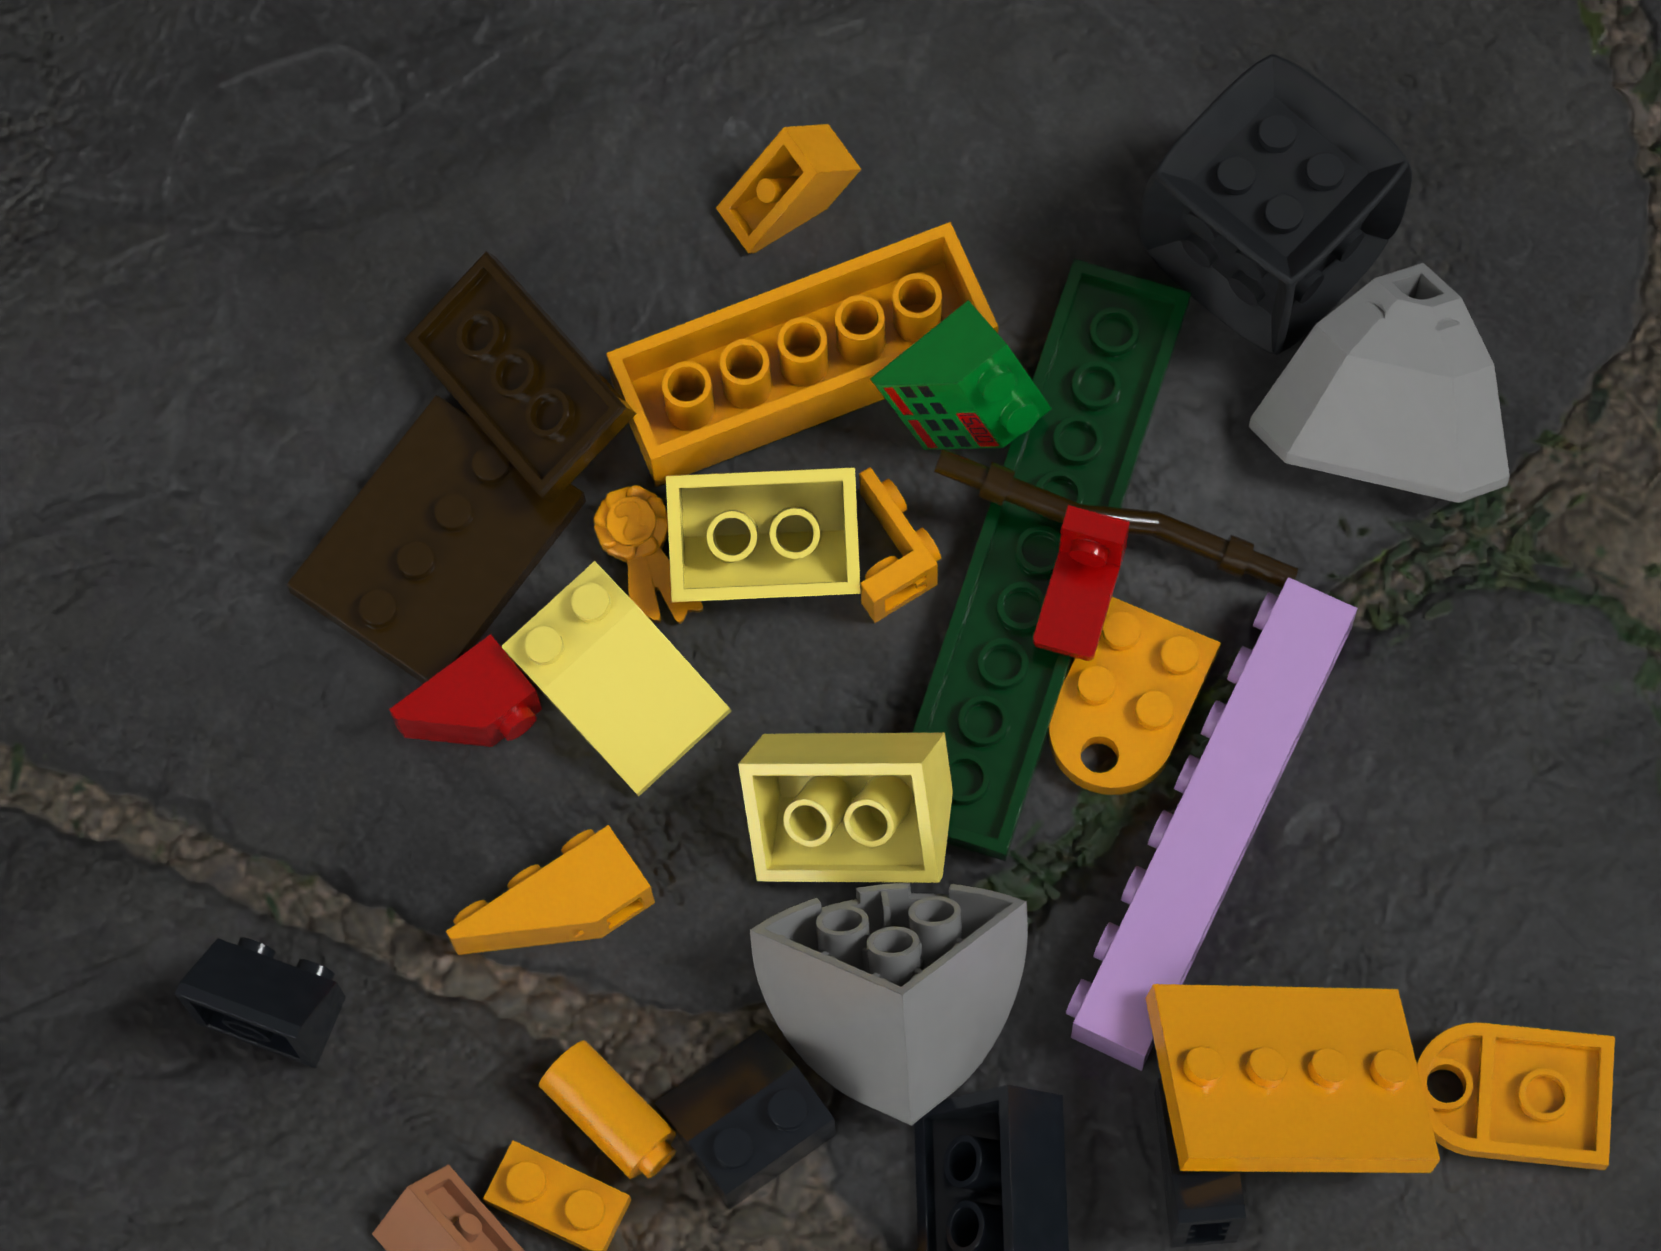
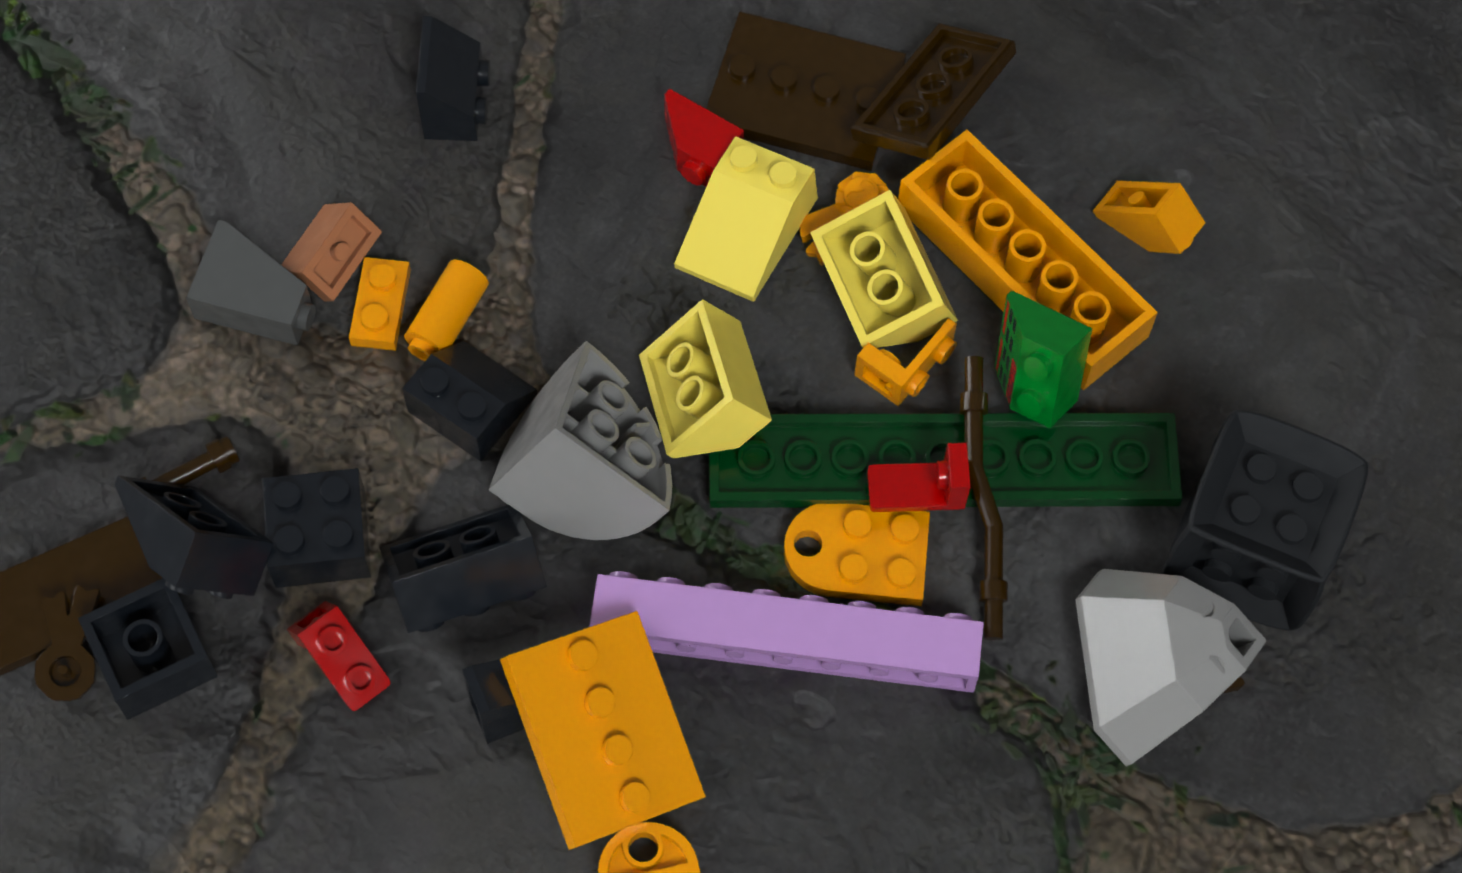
camera: 65 degrees right, 5 degrees down
(568, 900) = (587, 245): light orange slope -> none

